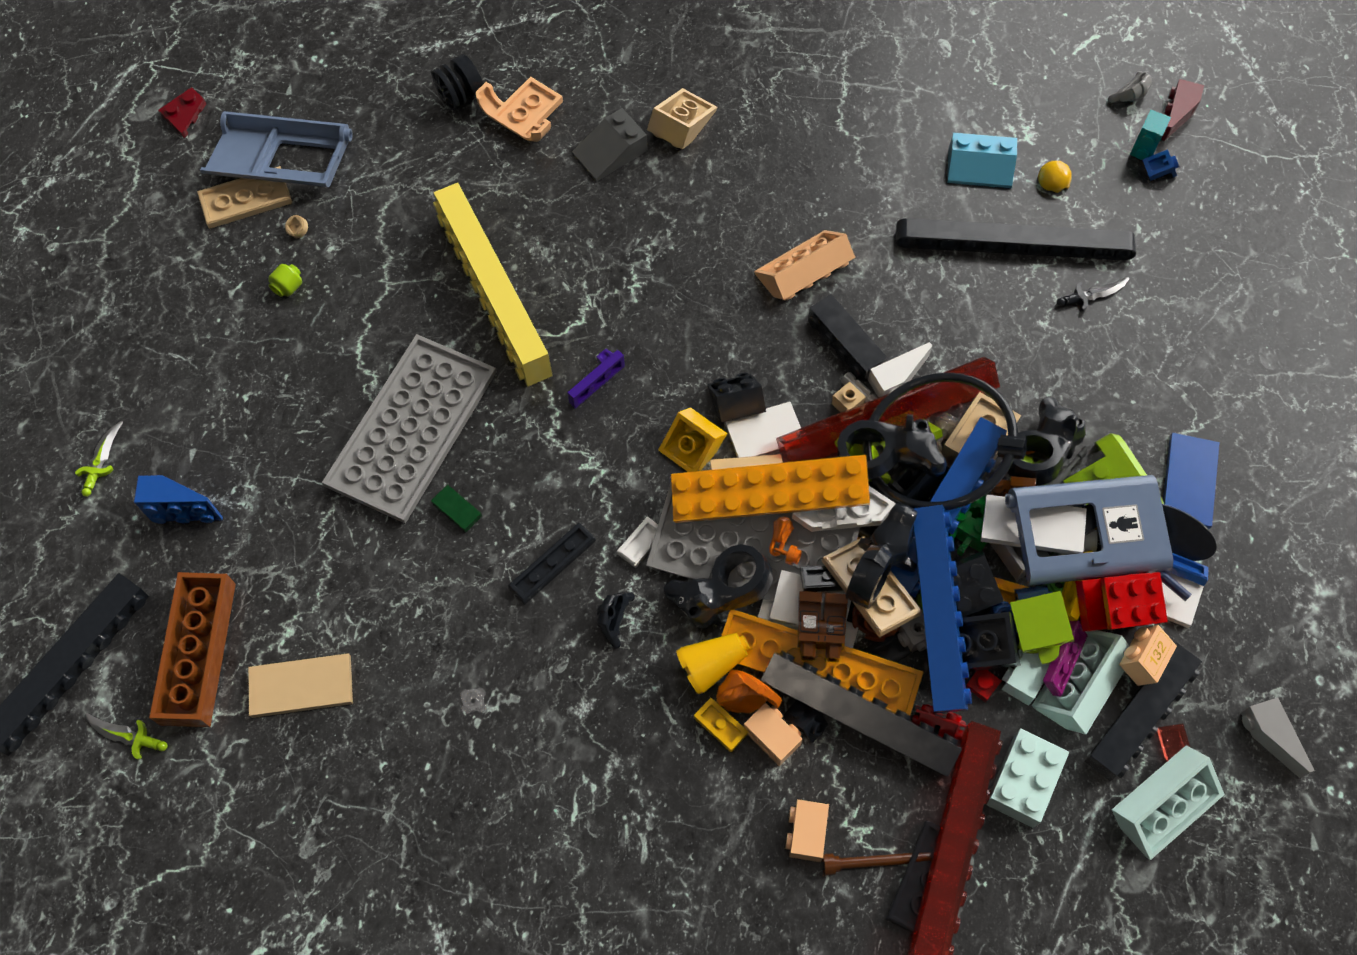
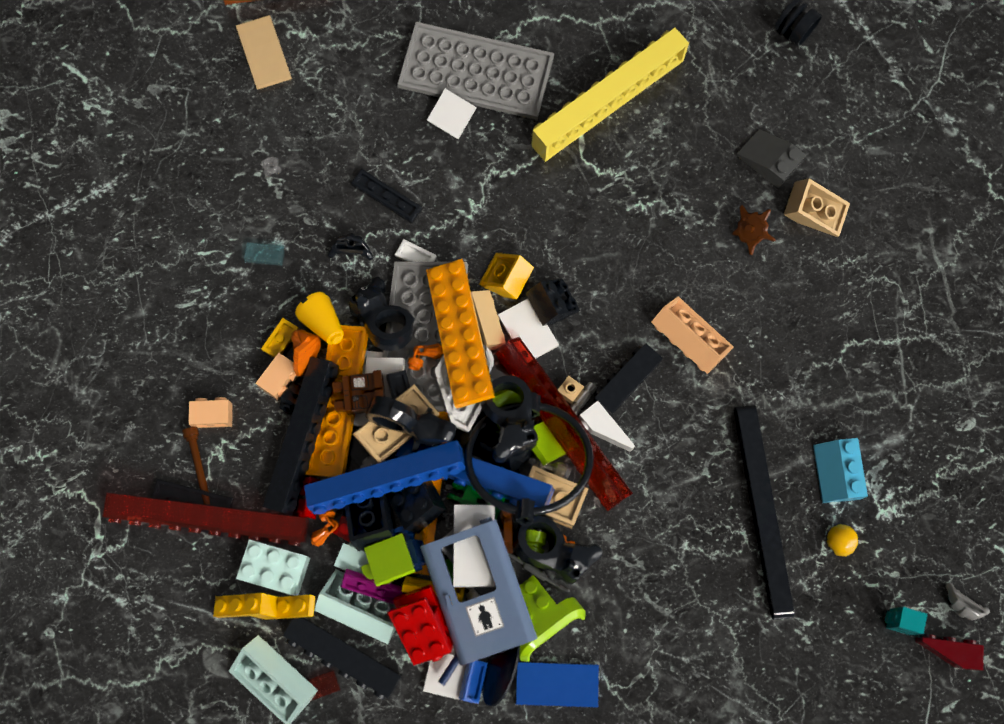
camera: 75 degrees right, 10 degrees up
(456, 508) = (416, 119): dark green tile -> none
(463, 463) = (451, 113): none -> white tile
(523, 109) = (788, 80): light nougat piece -> none
(595, 729) = (264, 254): none -> clear light blue tile
(609, 365) = (559, 200): dark purple hinge -> none
(693, 179) = (752, 228): none -> reddish brown piece
(990, 714) = (319, 536): none -> orange piece
(1078, 795) = (264, 606): none -> yellow bracket
(1091, 294) = (727, 587): piece -> none
(1147, 655) = (383, 651): light nougat brick -> none
(1160, 165) = (880, 637): blue bracket -> none

